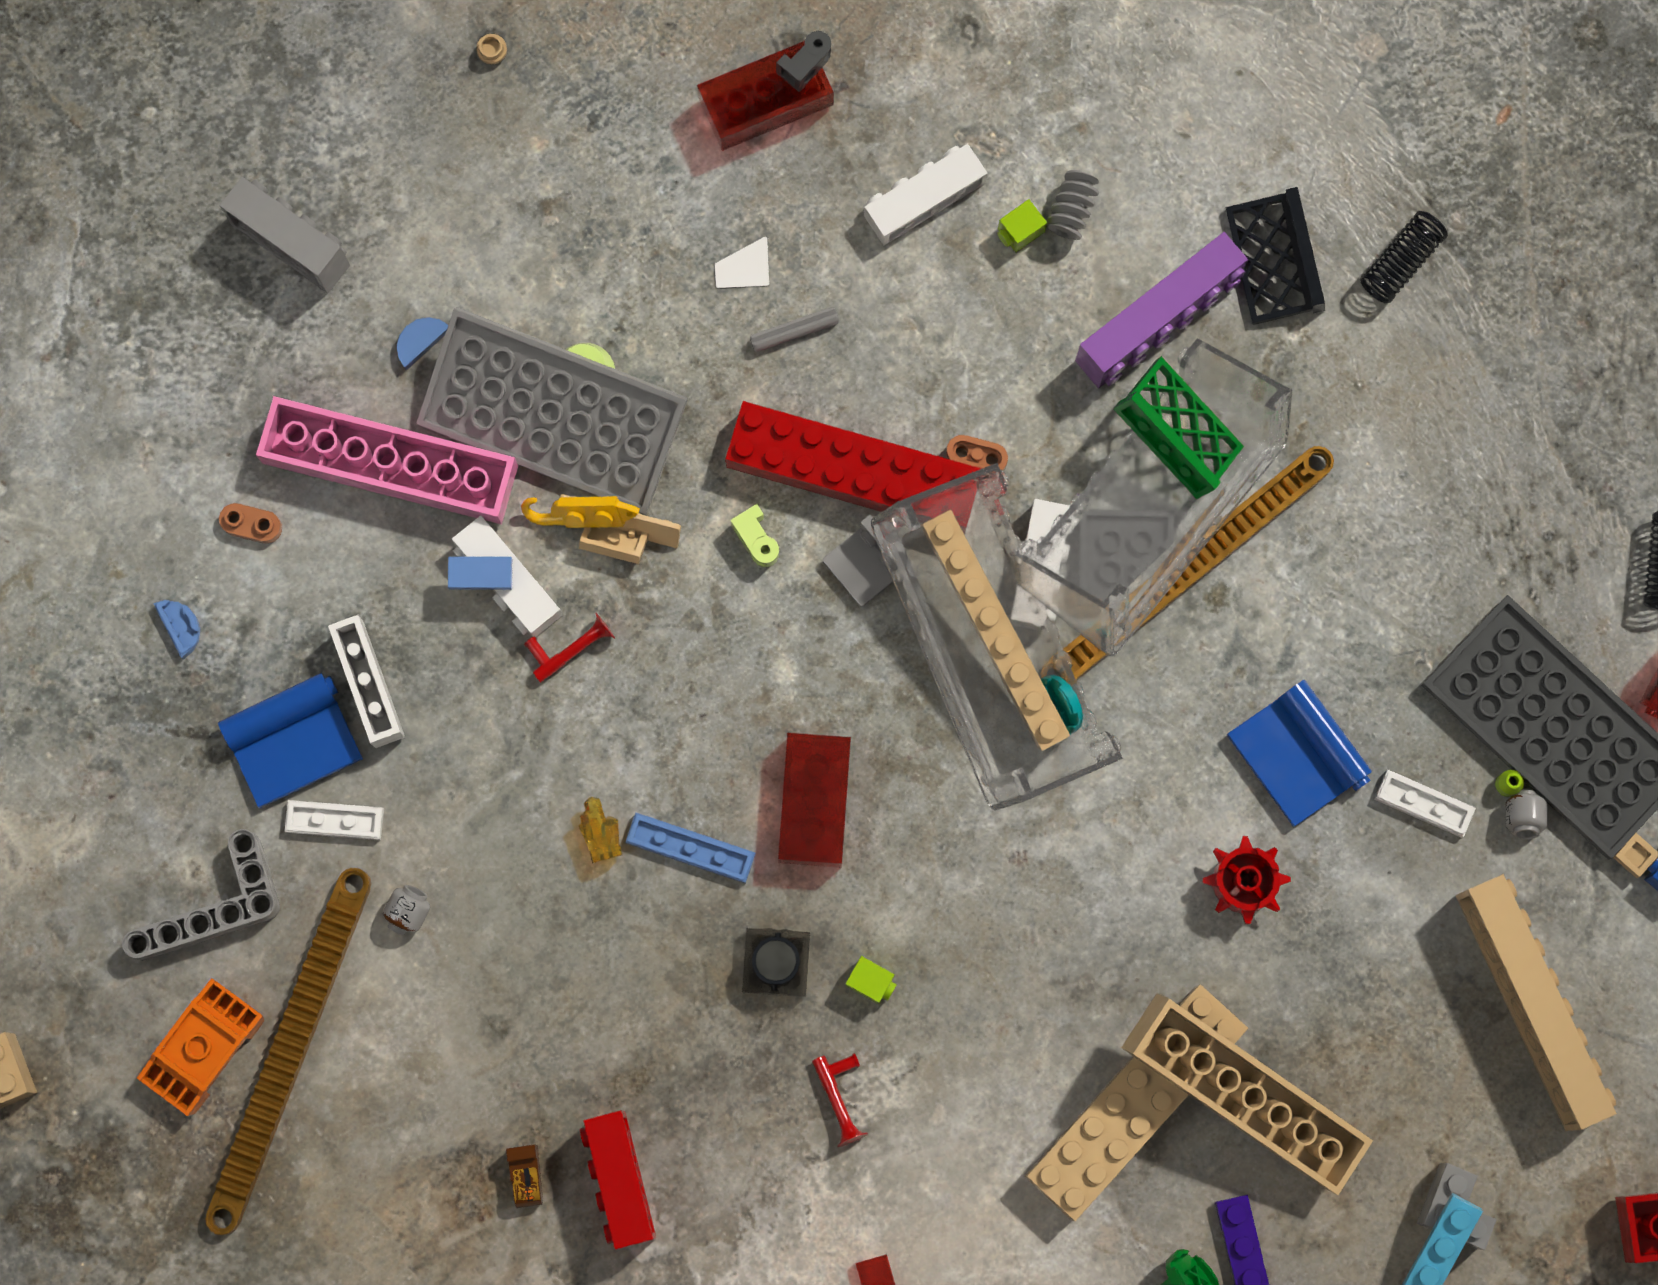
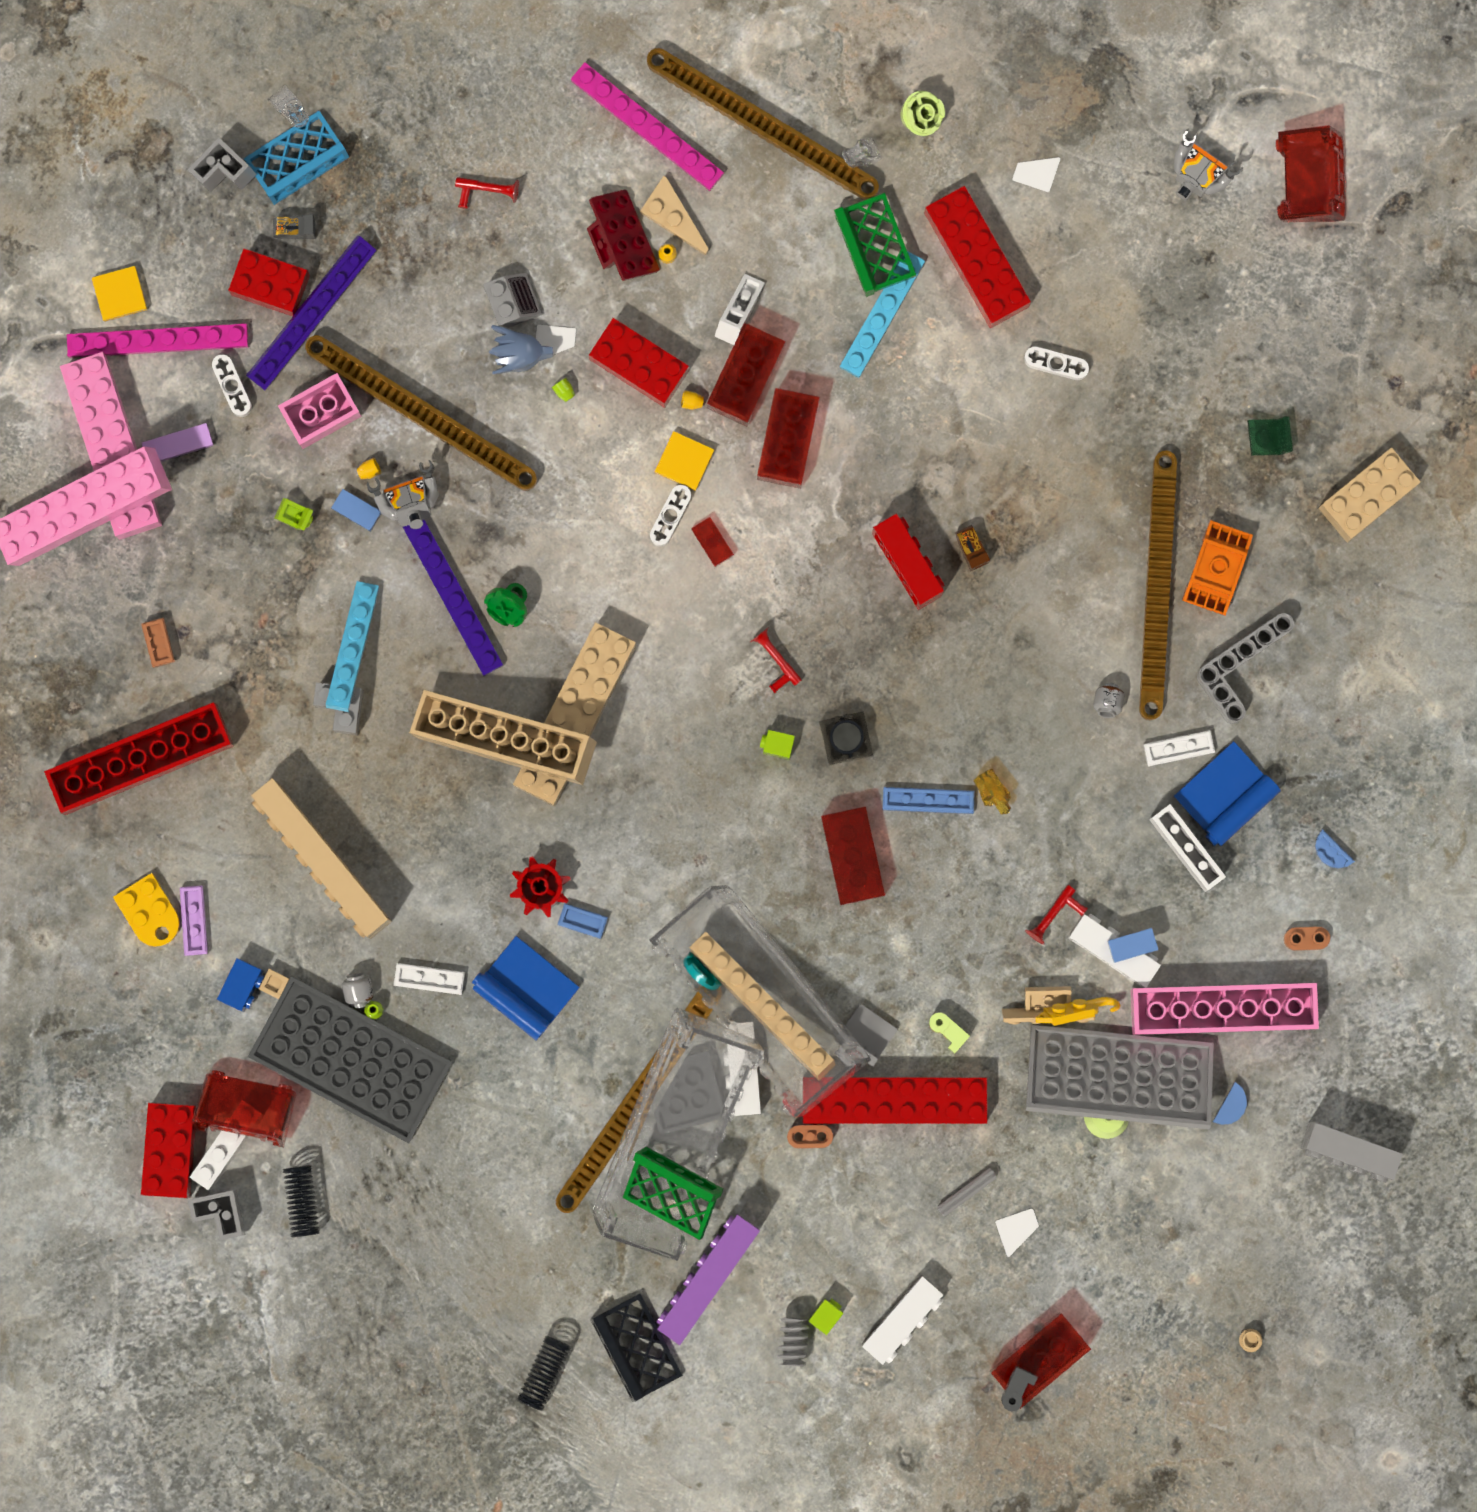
camera: 165 degrees right, 5 degrees up
(66, 1211) = (1270, 436): none -> clear green piece
(1199, 821) = (582, 921): none -> medium blue tile

